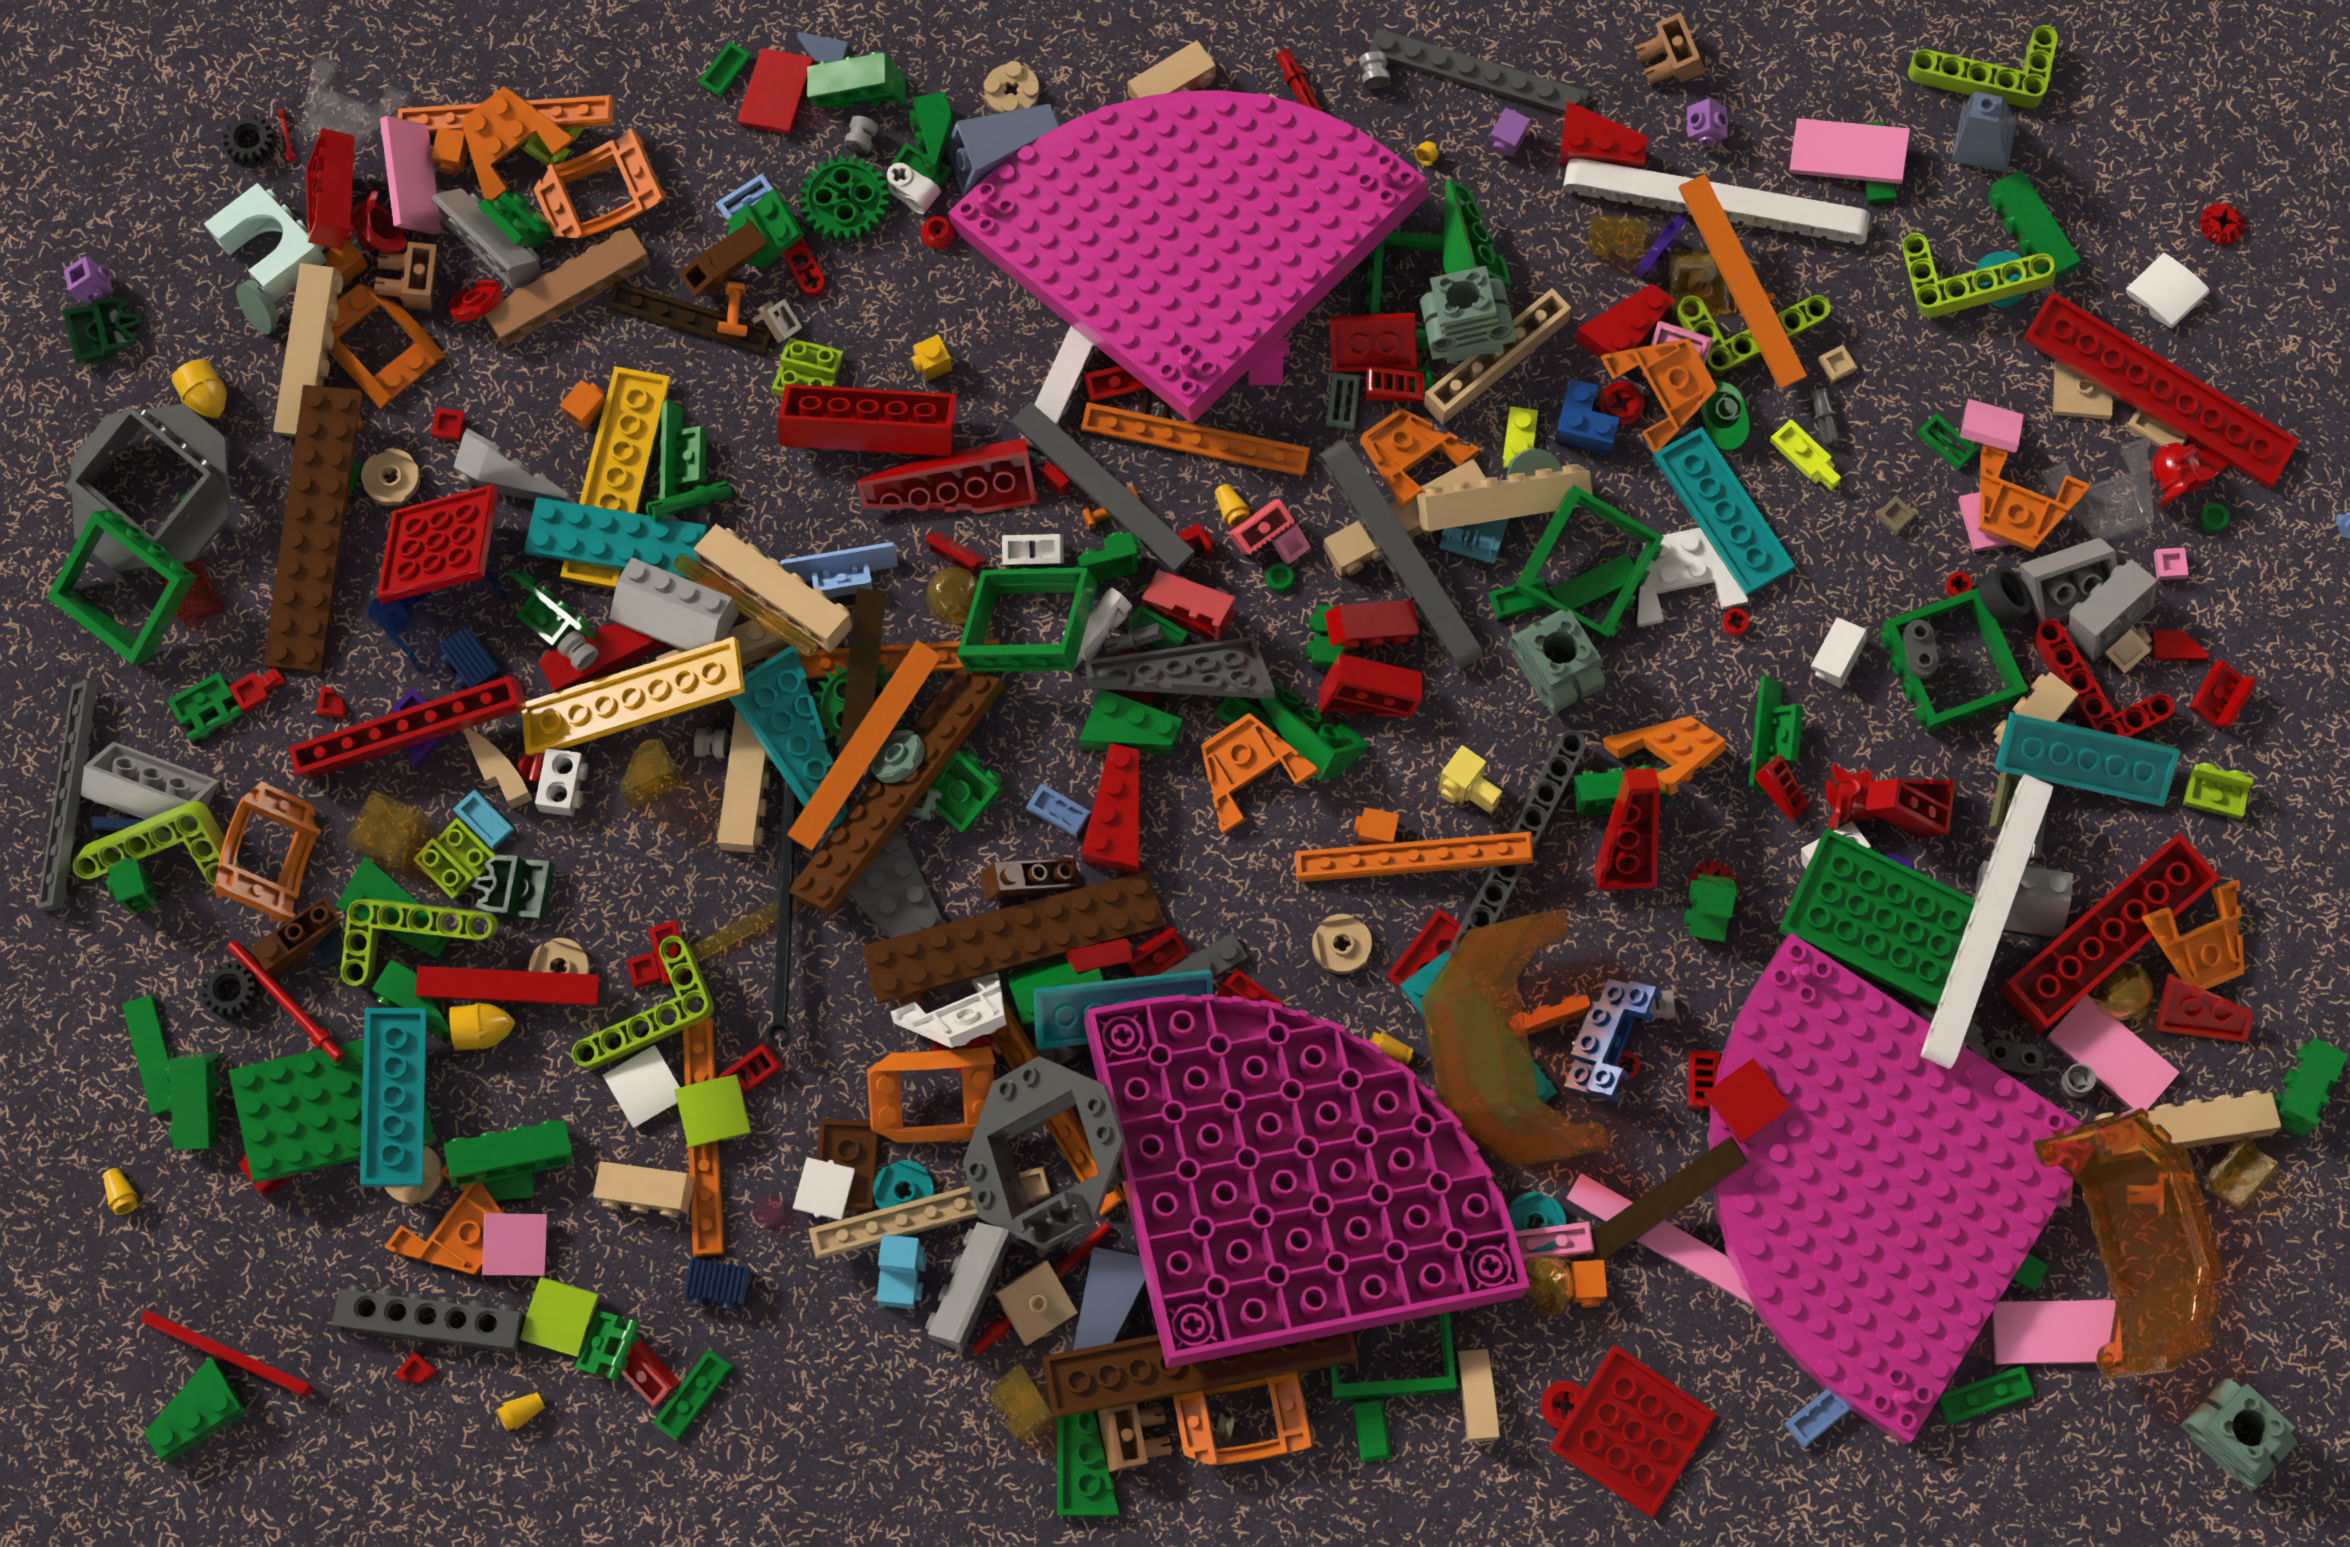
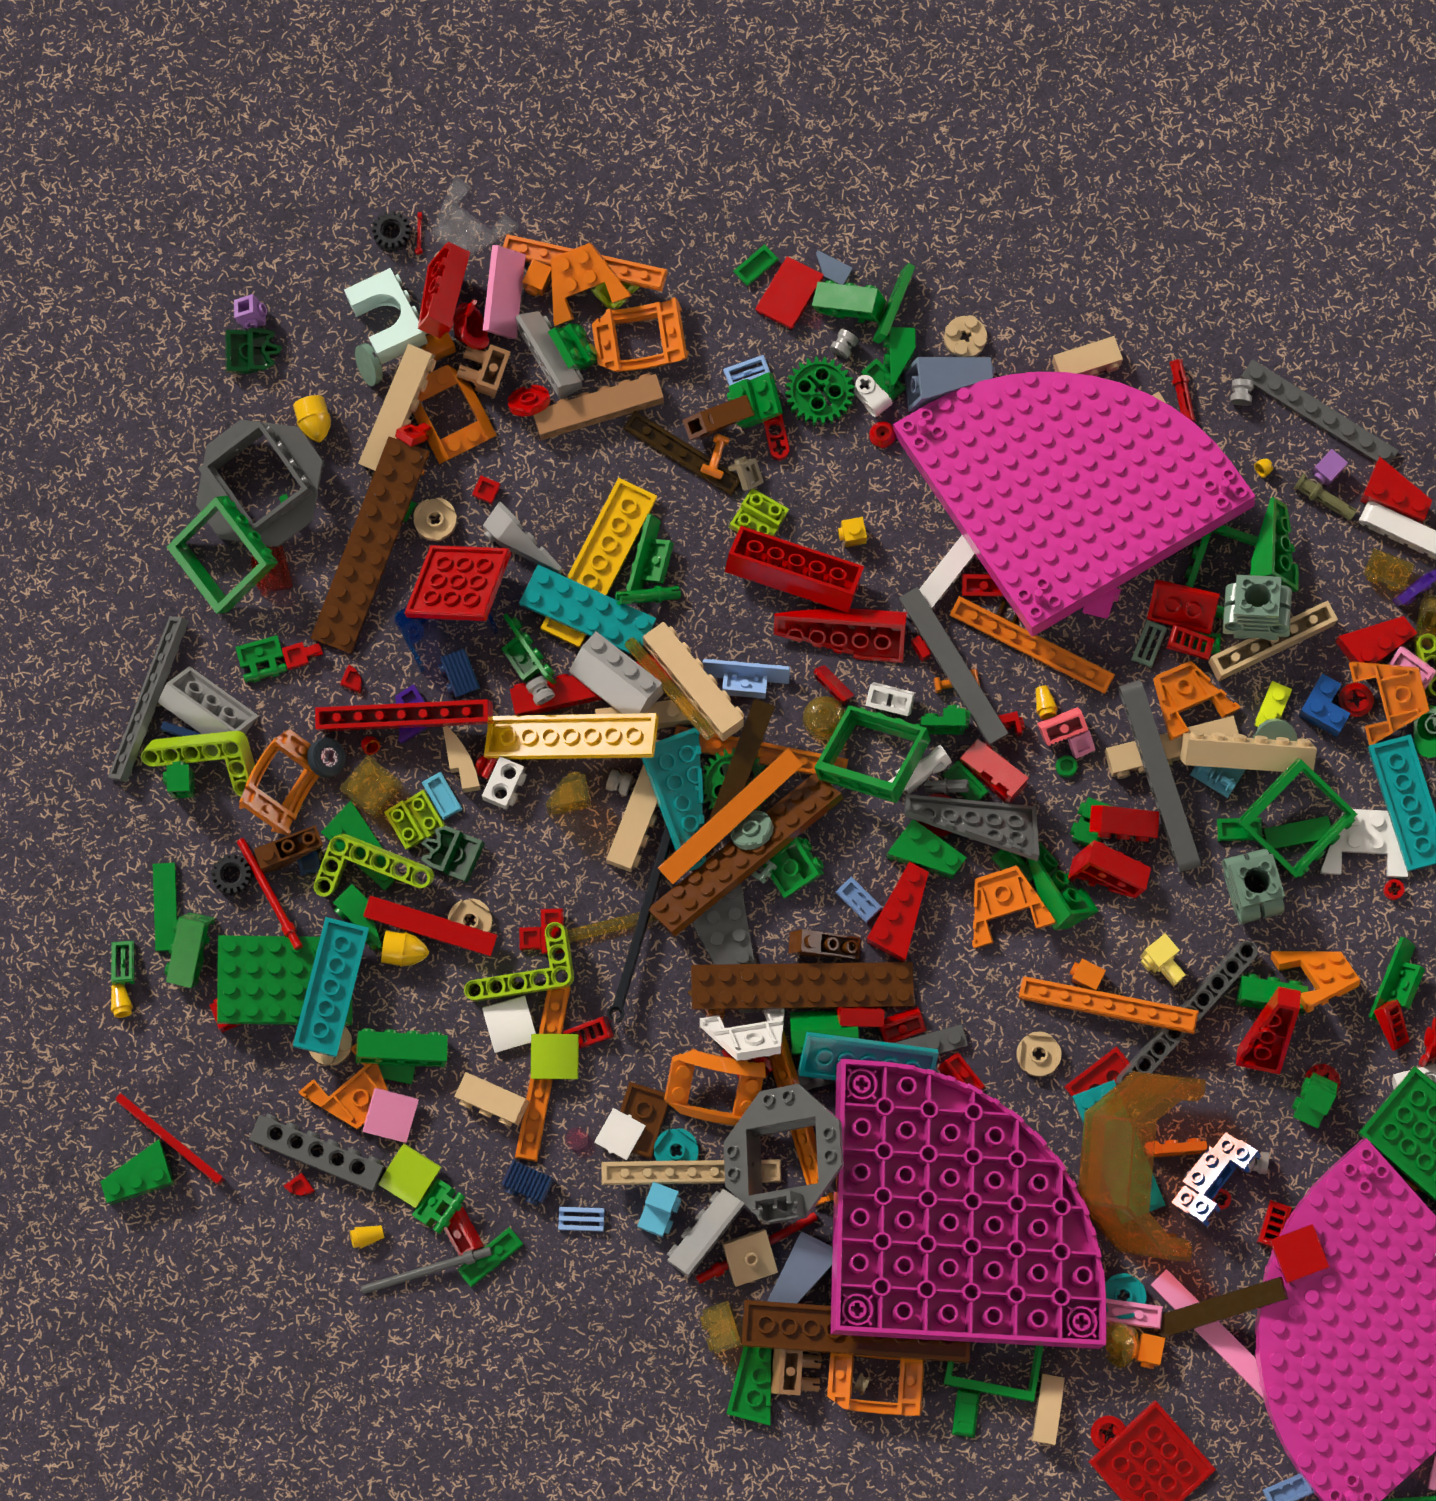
camera: 15 degrees right, 5 degrees up
(115, 1160) = (123, 979): none -> green tile
(306, 806) = (317, 753): none -> black bush
(335, 376) = (413, 435): none -> red plate
(378, 778) = (372, 743): none -> red hinge
(583, 404) = (589, 500): orange brick -> none
(663, 1402) = (468, 1257): none -> dark grey bar
(802, 1312) = (562, 1218): none -> light blue tile
(910, 69) = (894, 303): none -> green tile
(1393, 1048) = (1054, 1141): yellow cone -> none
(1501, 166) = (1317, 493): none -> olive pin

